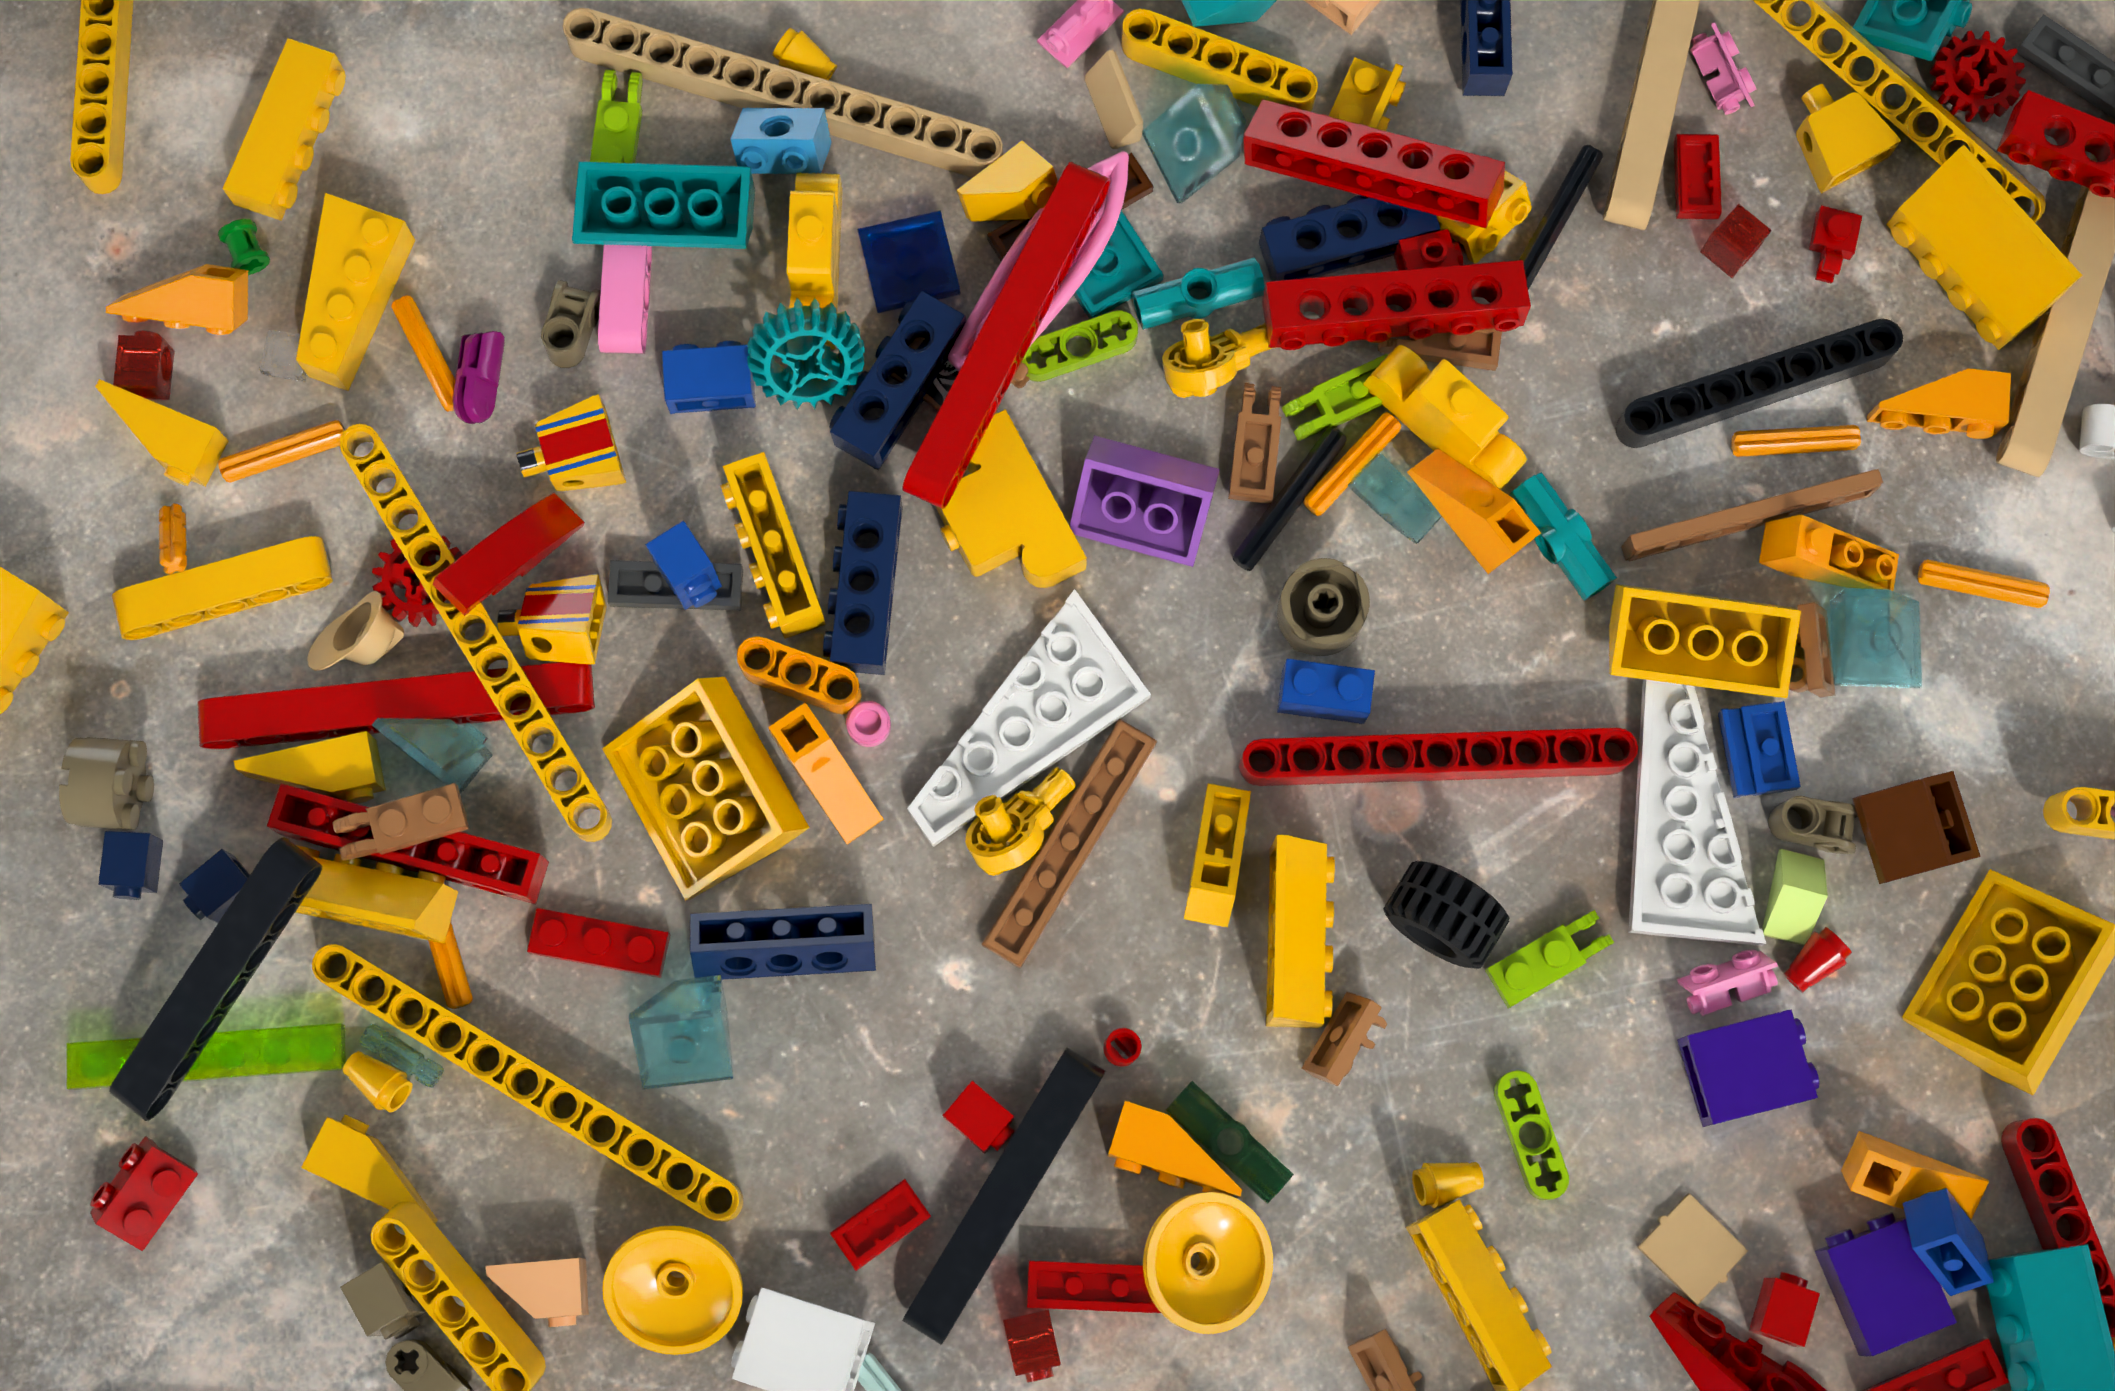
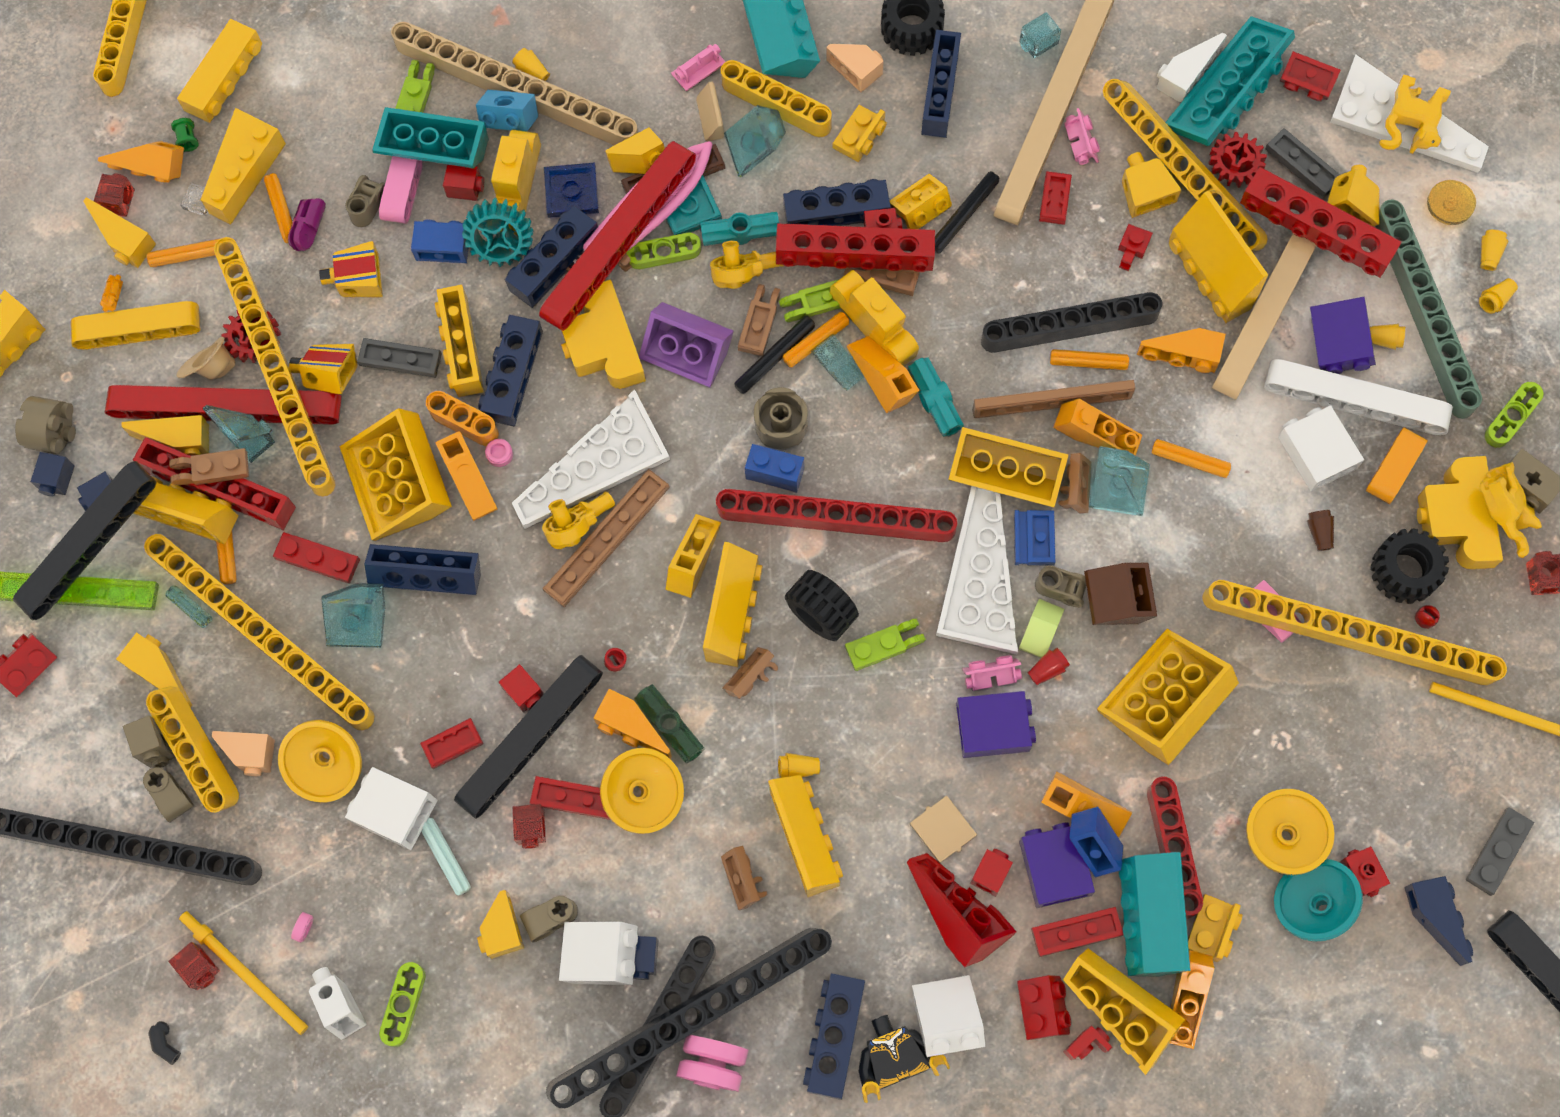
camera: 15 degrees right, 5 degrees down
(379, 1082) = (172, 619): yellow cone -> none
(508, 553) = (302, 323): red slope -> none
(684, 566) = (402, 343): blue brick -> none
(728, 273) = (463, 182): none -> red brick
(1374, 163) = (856, 164): red brick -> none
(1531, 1171) = (865, 765): lime beam -> none
(1735, 241) = (1071, 237): clear red brick -> none

